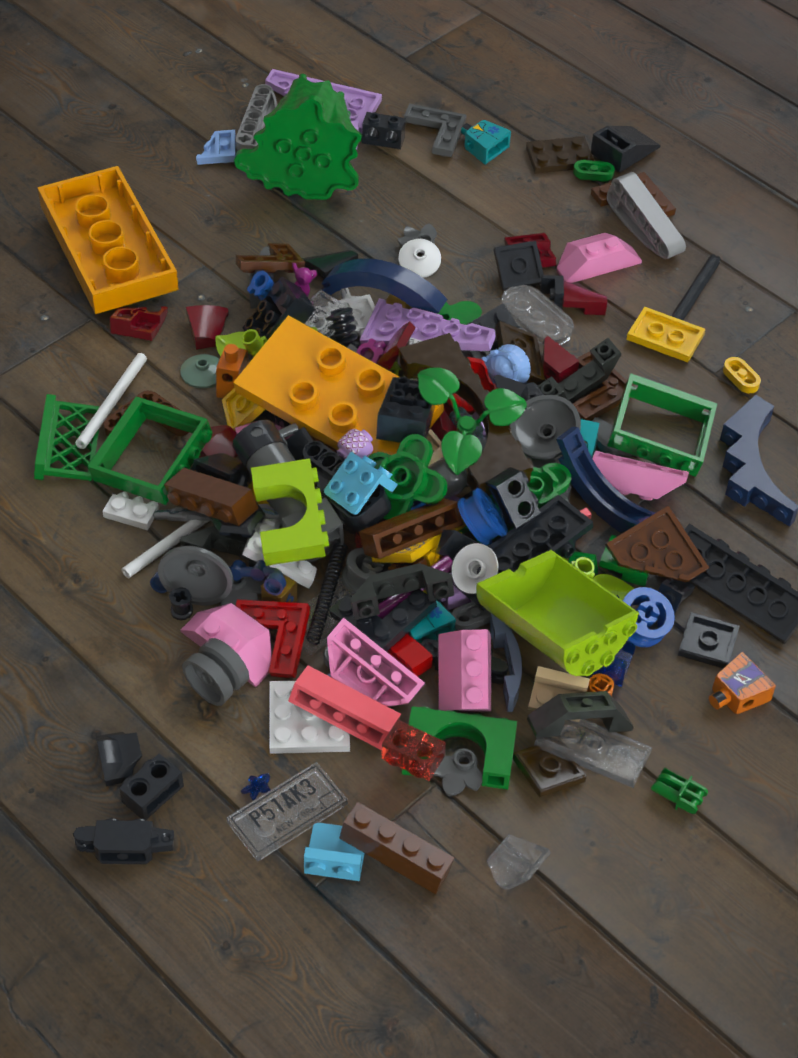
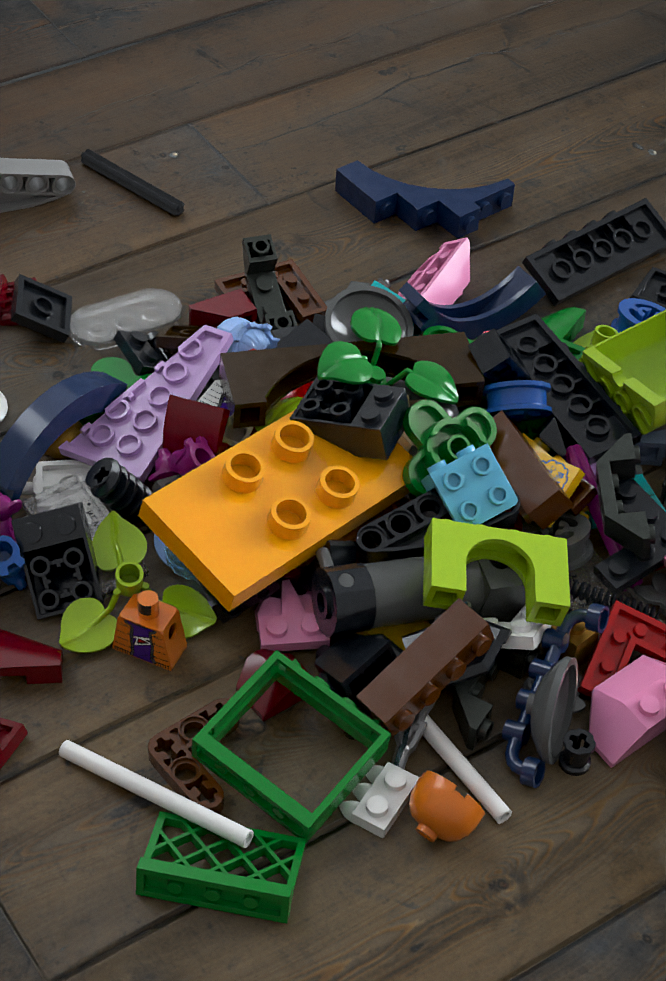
camera: 80 degrees left, 5 degrees down
(118, 533) = (443, 810): none -> orange cylinder
(200, 371) = (117, 688): sand green dish -> none
(239, 410) = (220, 634): yellow plate -> none
(357, 442) = (396, 482): lavender head -> none
(466, 565) = (613, 418): white dish -> none
(554, 287) = (94, 288): black bracket -> none
(582, 298) = (113, 273): dark red slope -> none
(595, 257) = (42, 247): bright pink wedge -> none
(658, 548) = (562, 283): reddish brown plate -> none
(666, 334) = (202, 220): yellow plate -> none
(671, 400) = (310, 258): green window -> none
(676, 591) = (603, 298): black bracket -> none
(741, 375) = (287, 179): yellow plate -> none

